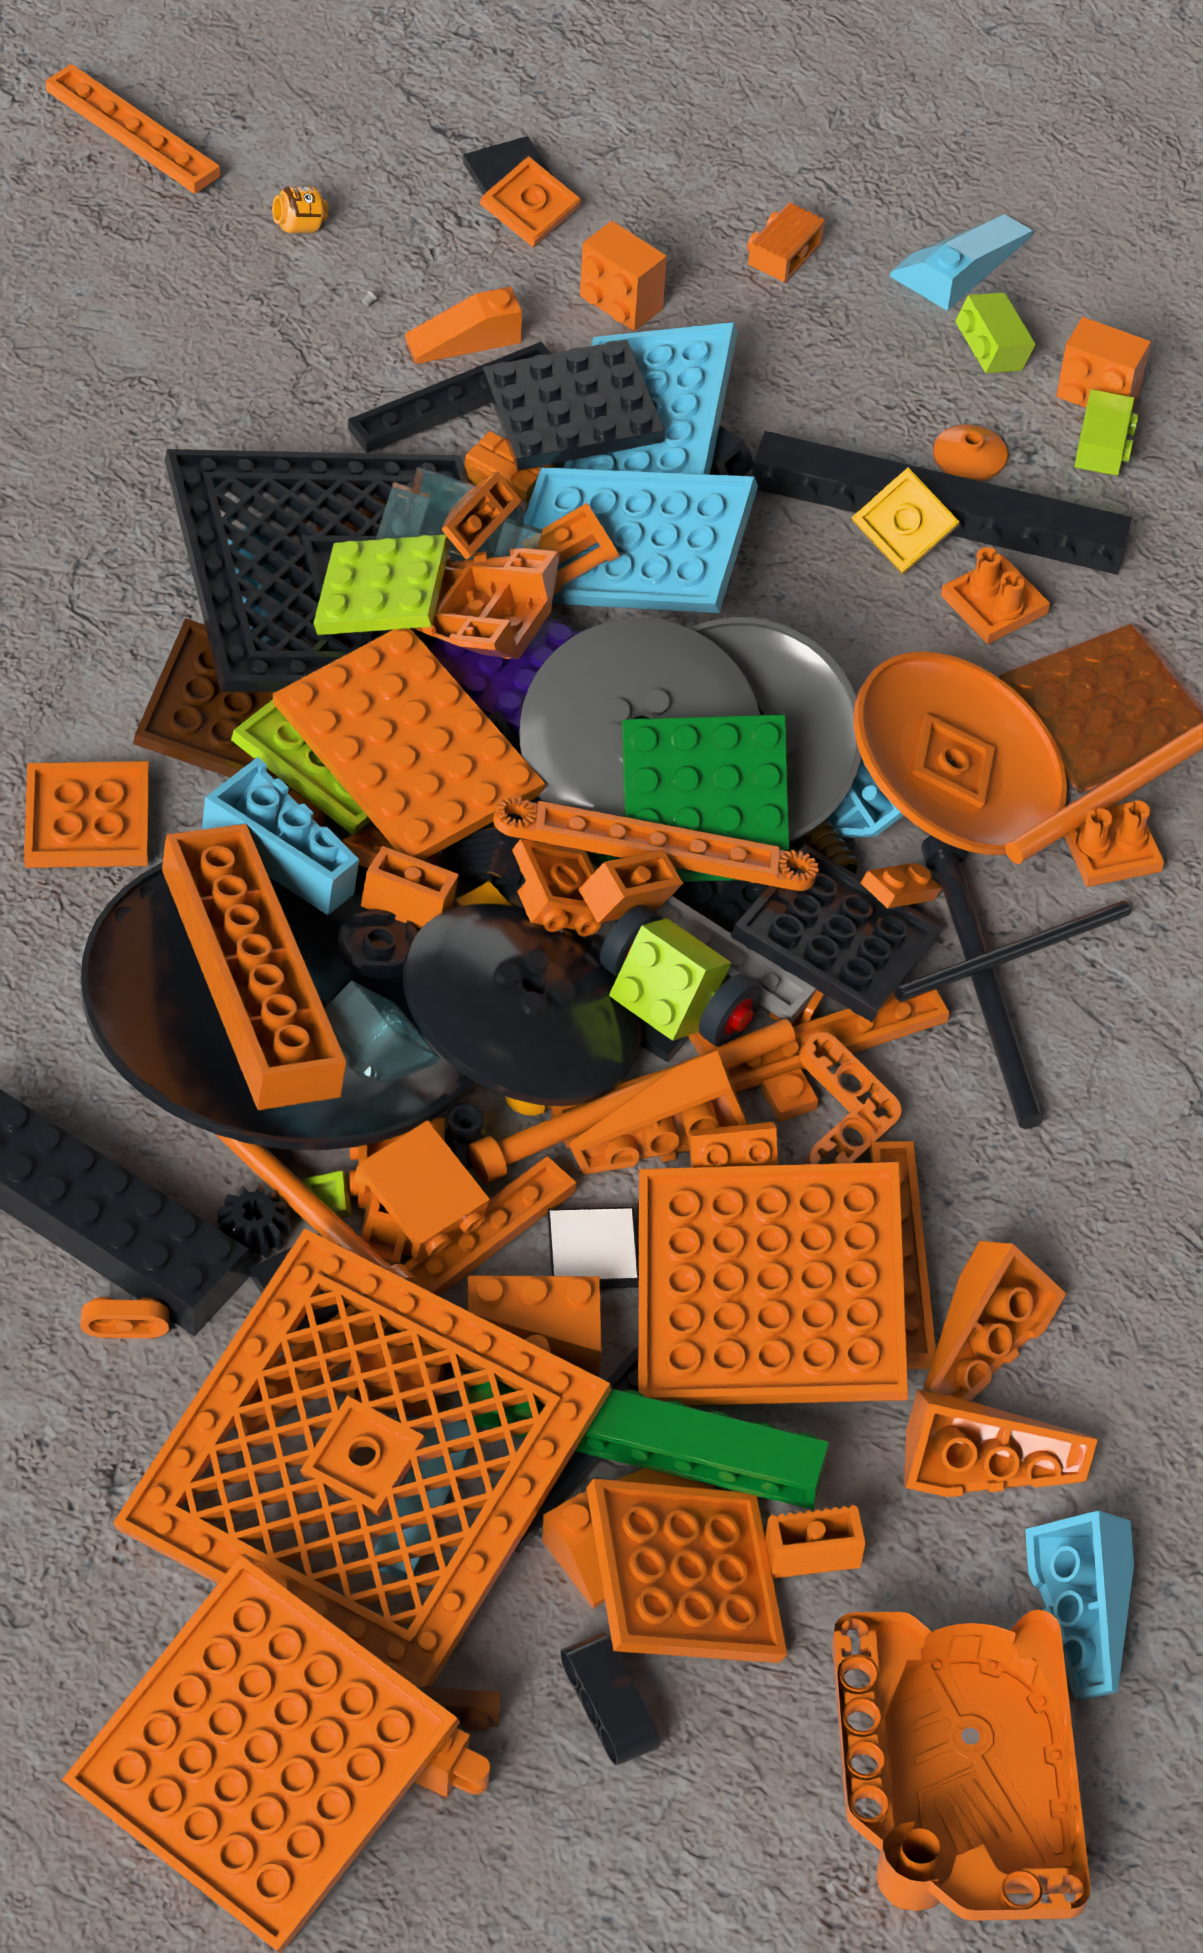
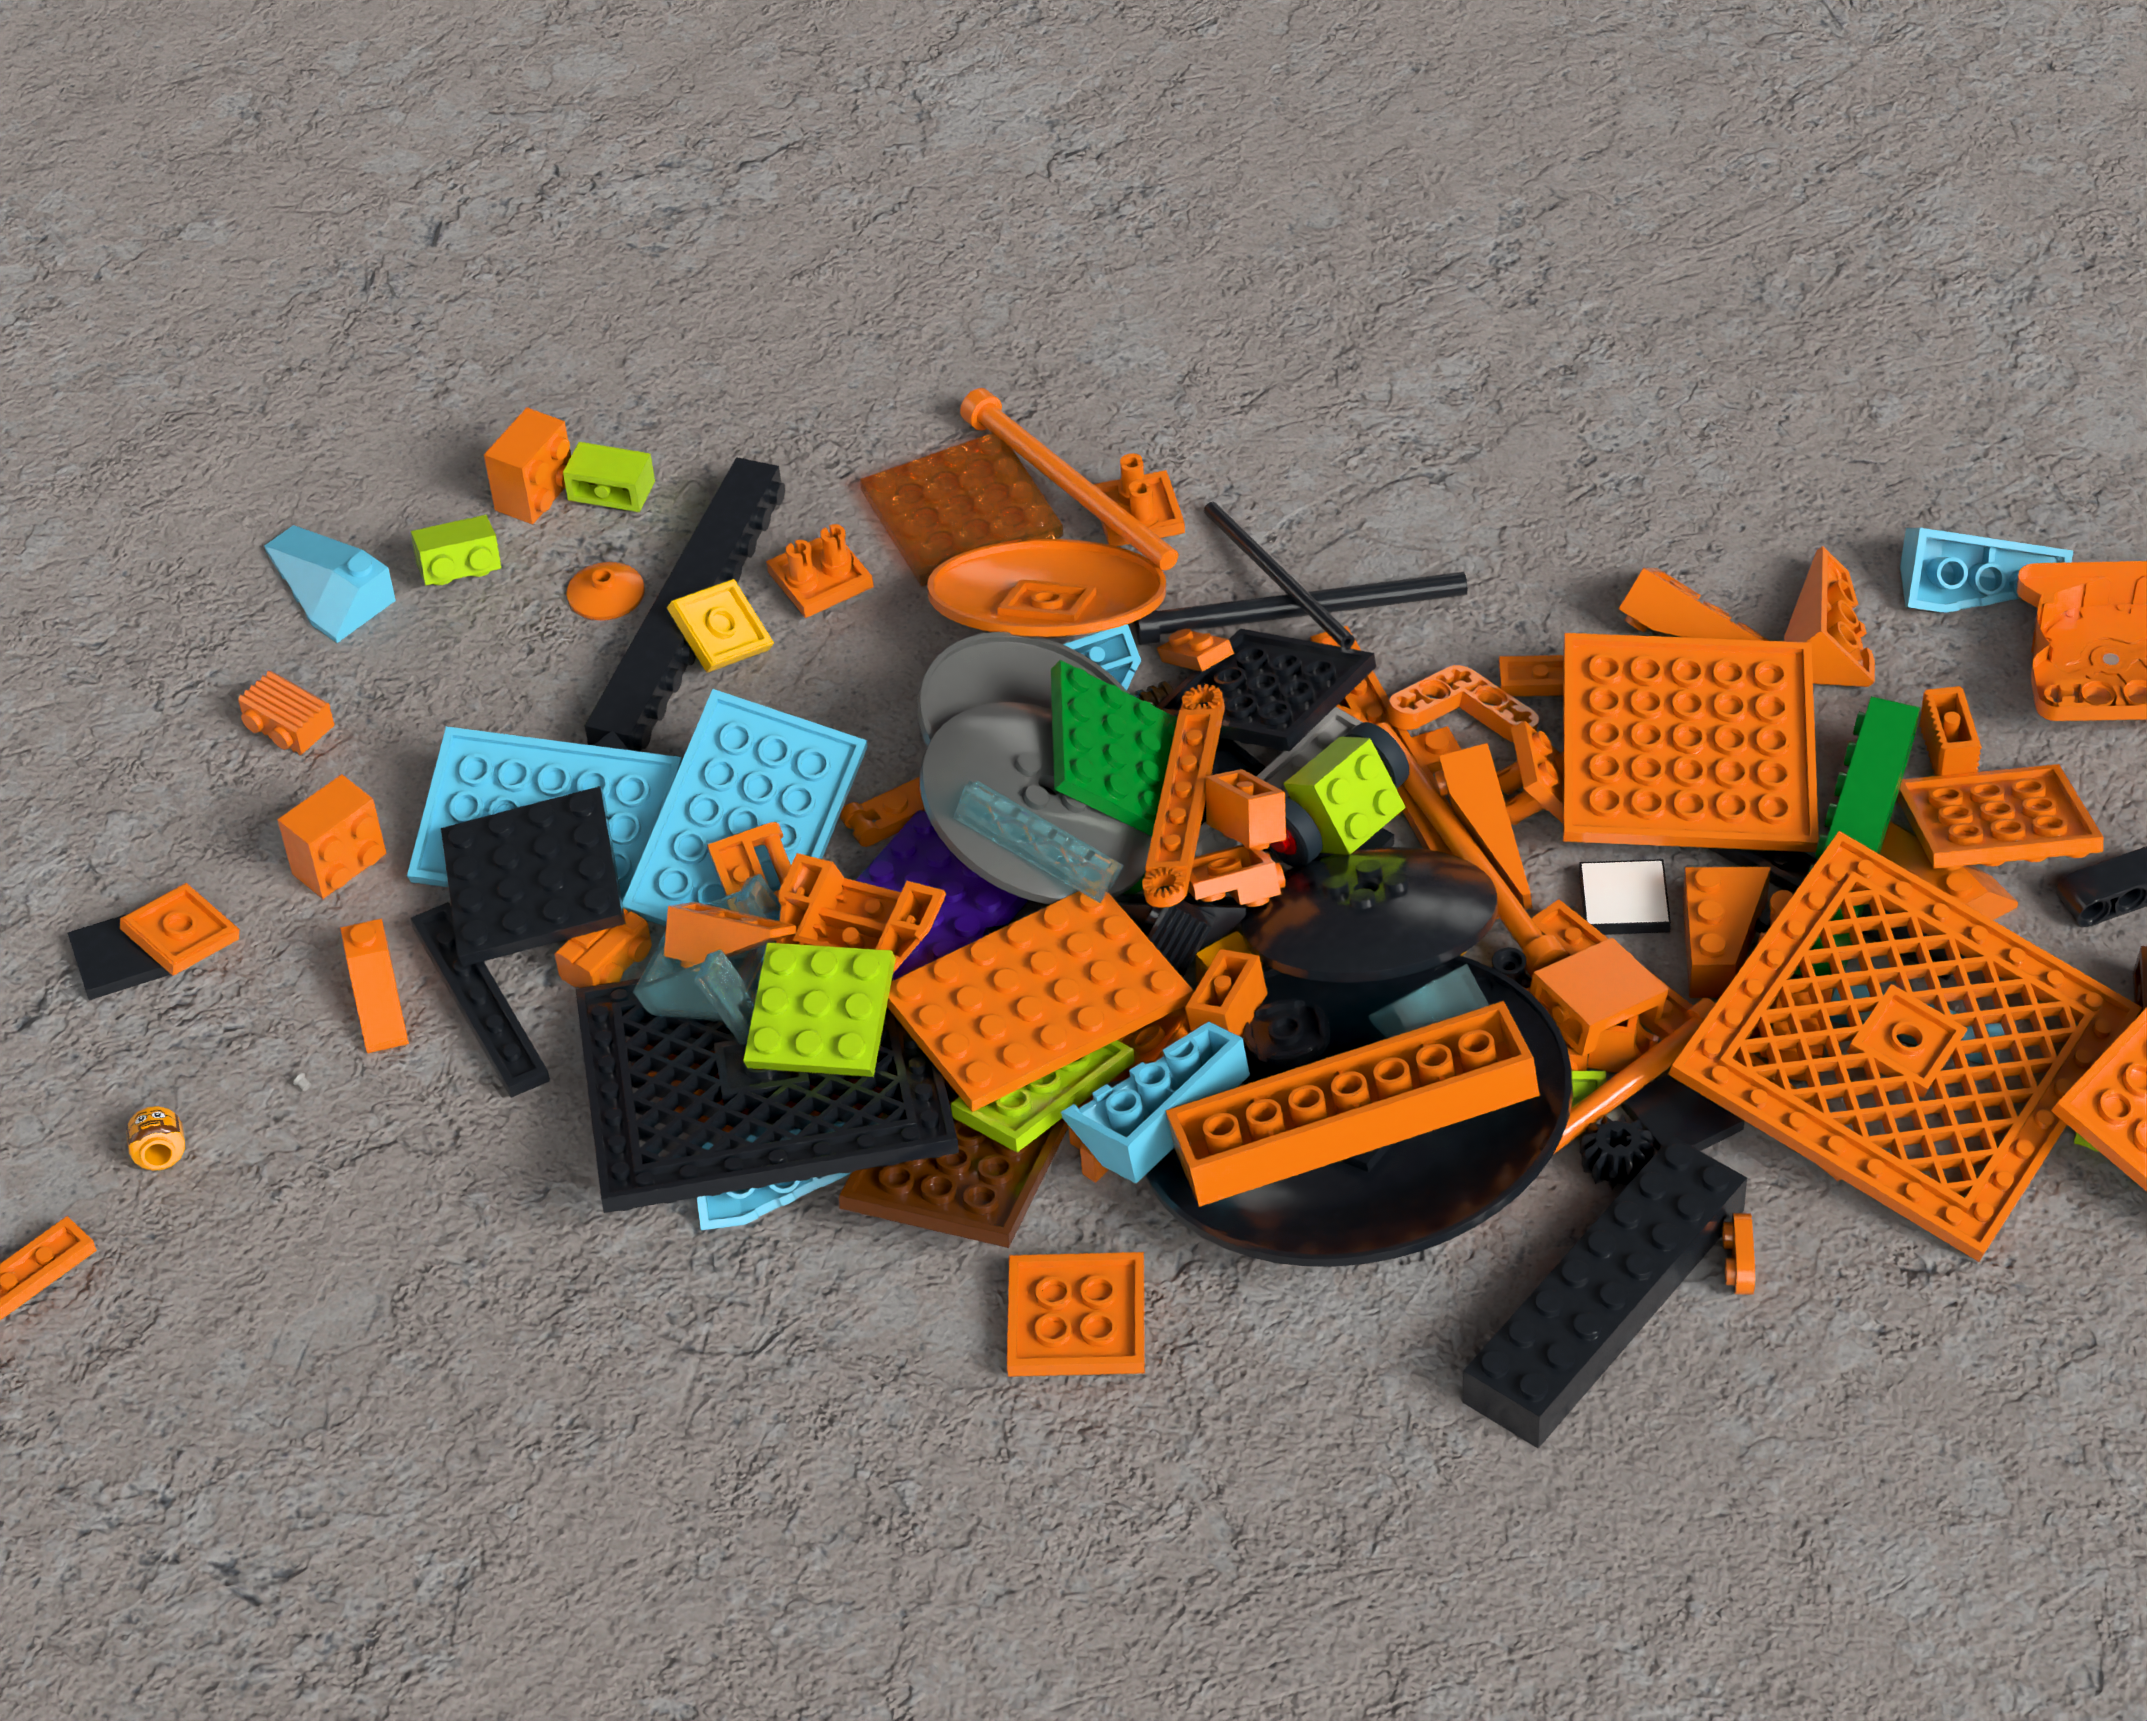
camera: 80 degrees left, 5 degrees down
(558, 711) = (1037, 840): none -> clear light blue fence

